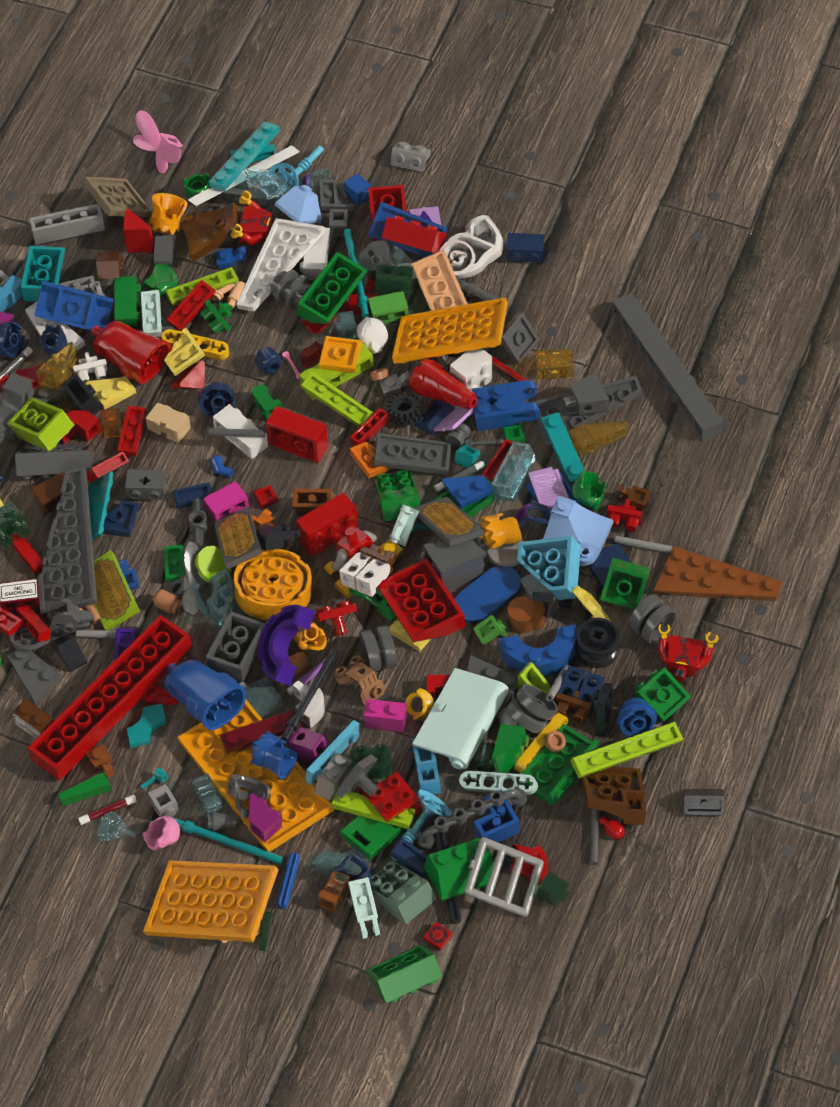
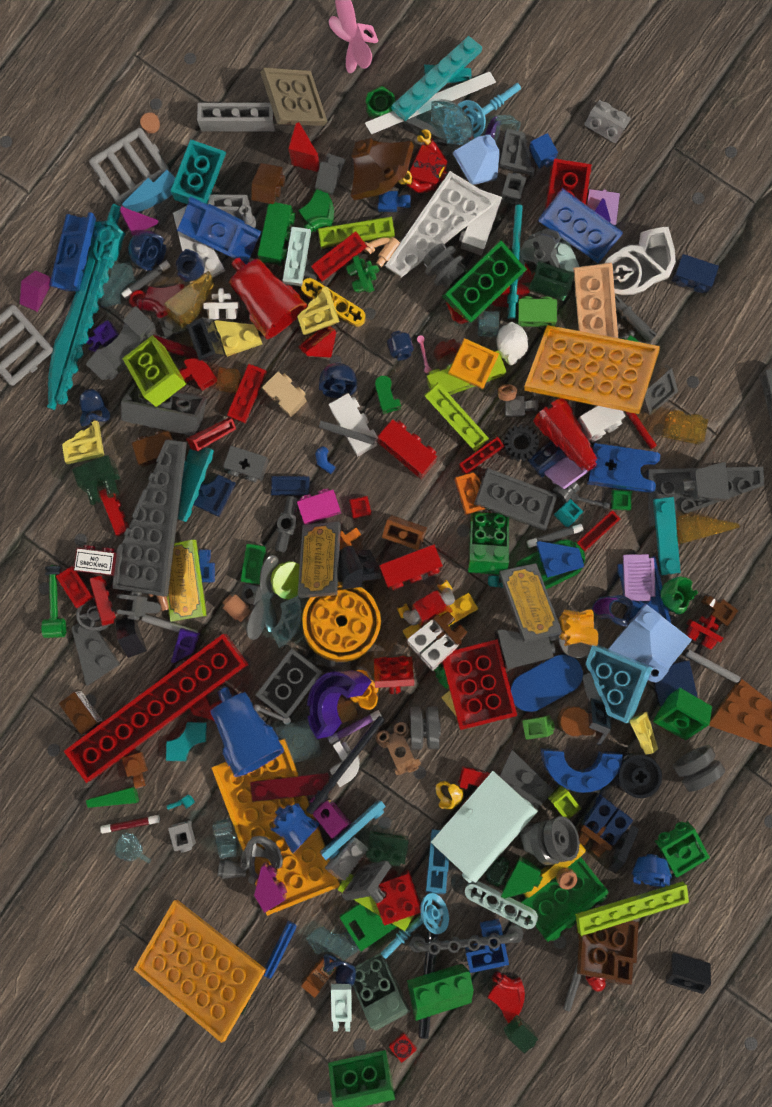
camera: 15 degrees right, 30 degrees up
(162, 833) = (172, 872): bright pink hair -> none
(167, 213) = (340, 132): light orange hat -> none
(190, 827) = (201, 866): teal bar -> none
(385, 715) = (413, 799): dark pink brick -> none
(404, 525) = (484, 586): light aqua hinge -> none
(410, 857) = (399, 962): dark blue tile -> none
(413, 234) = (585, 237): red wedge -> none
(513, 471) = (609, 551): clear light blue brick -> none
(520, 858) = (475, 1038): light grey bar -> none
(557, 684) = (586, 813): light grey piece -> none
(683, 654) = (718, 811): red torso -> none

